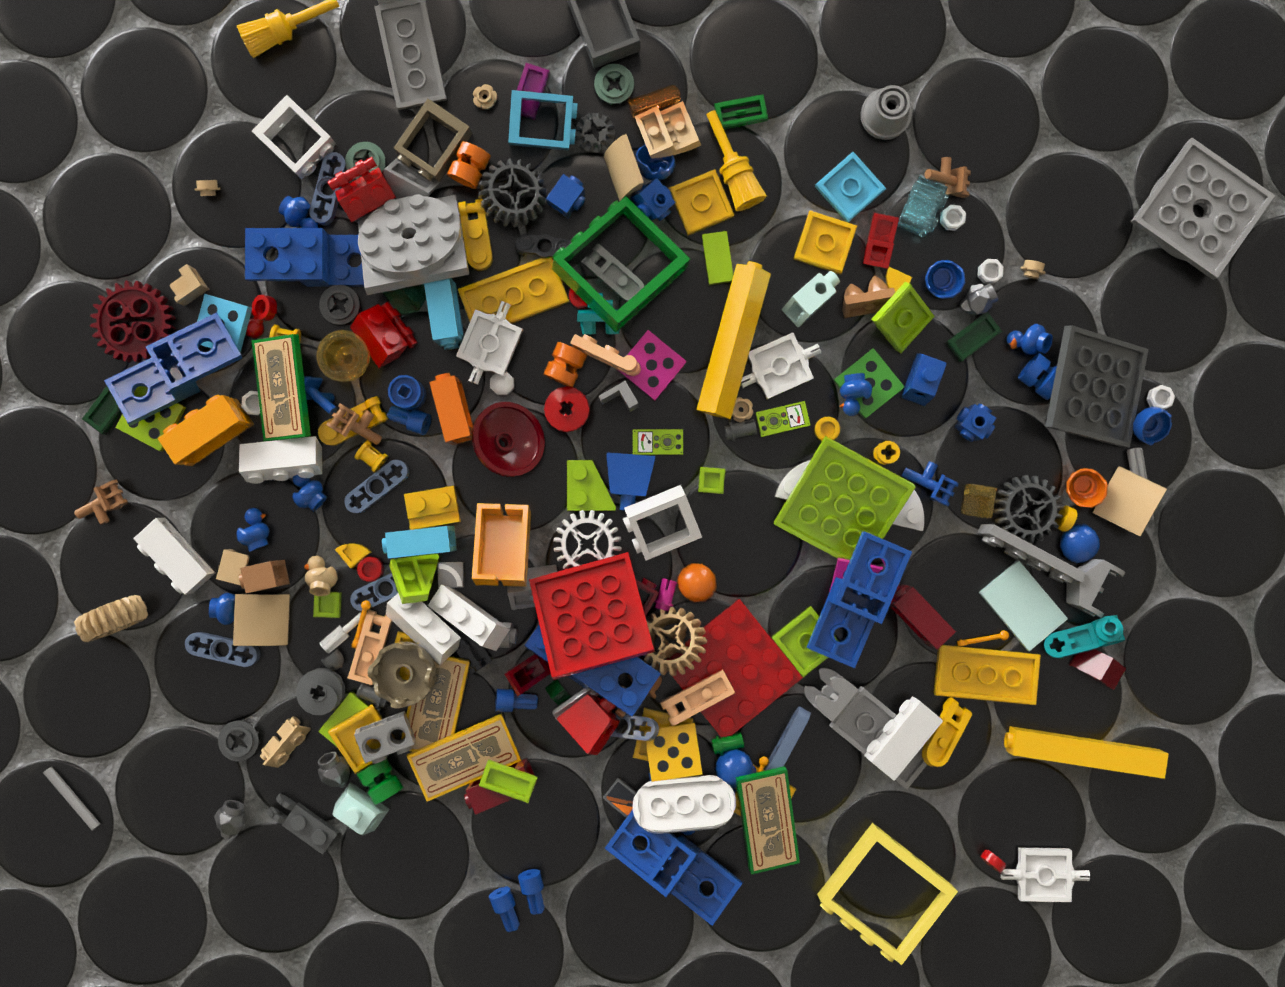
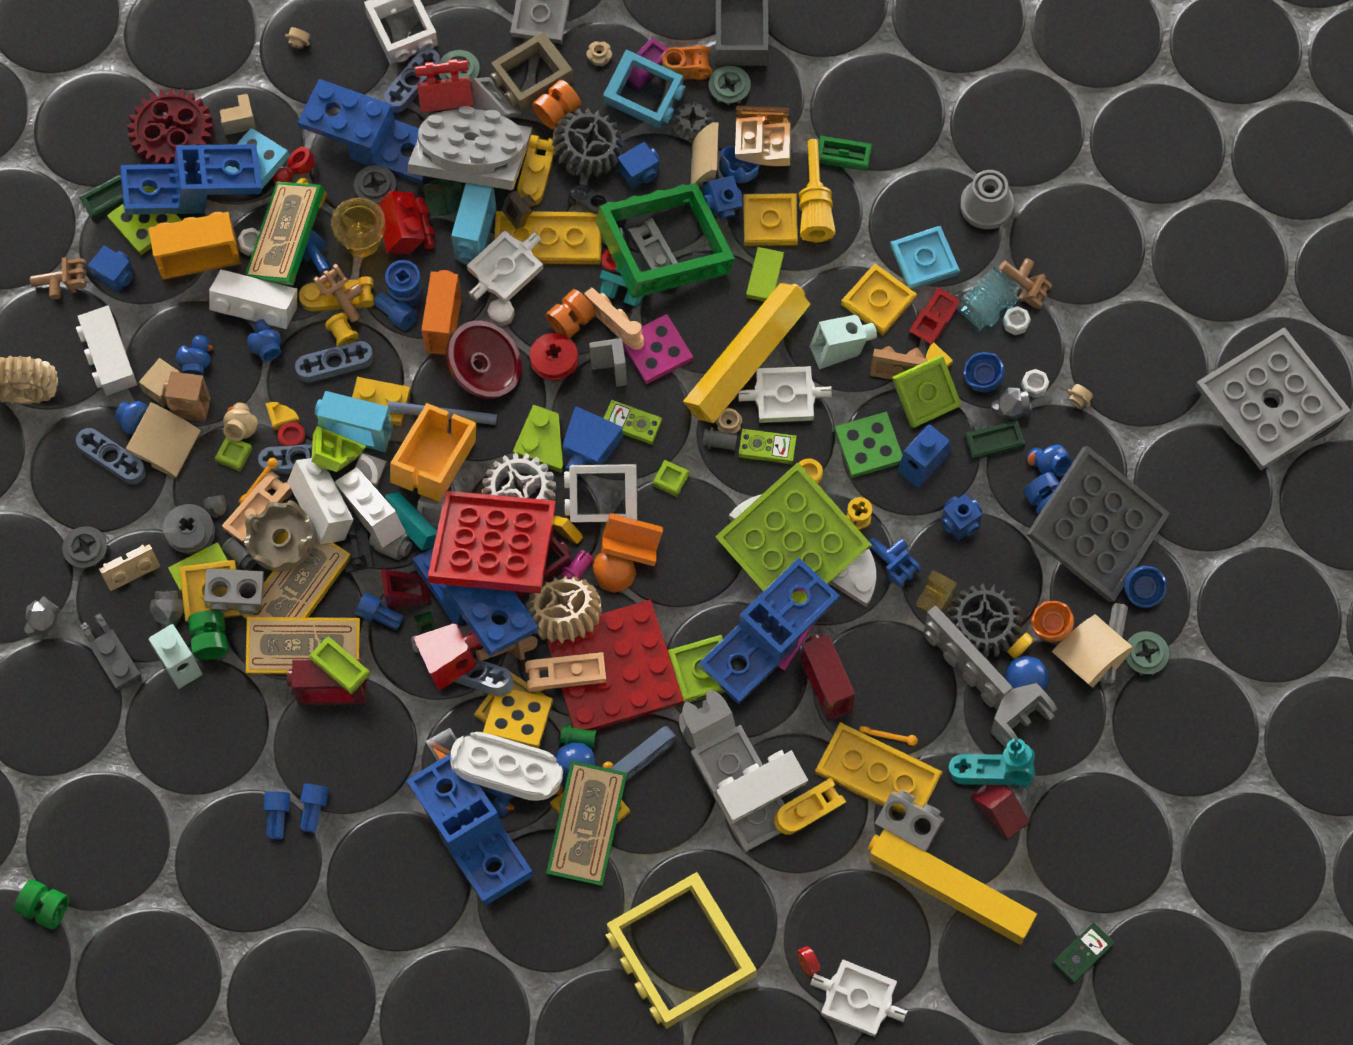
camera: 25 degrees right, 20 degrees down
(143, 477) = (111, 268): none -> blue brick
(295, 212) = (372, 85): blue animal -> none
(339, 635) = (231, 485): white axle -> none
(478, 283) = (517, 209): none -> dark brown tile
(492, 499) = (413, 409): none -> sand blue bar
(507, 611) = (414, 524): none -> teal piece
(572, 74) = (688, 61): none -> orange piece
(644, 564) = (566, 529): none -> yellow tile
(703, 556) = (631, 539): none -> orange panel
(853, 388) = (848, 438): blue animal -> none
(1023, 605) = (943, 717): light aqua tile -> none
(1032, 717) = (906, 827): none -> light grey brick
(1160, 397) = (1167, 564): white tile -> none
(1182, 484) = (1152, 643): none -> sand green gear
(1210, 763) = (1083, 953): none -> dark green tile

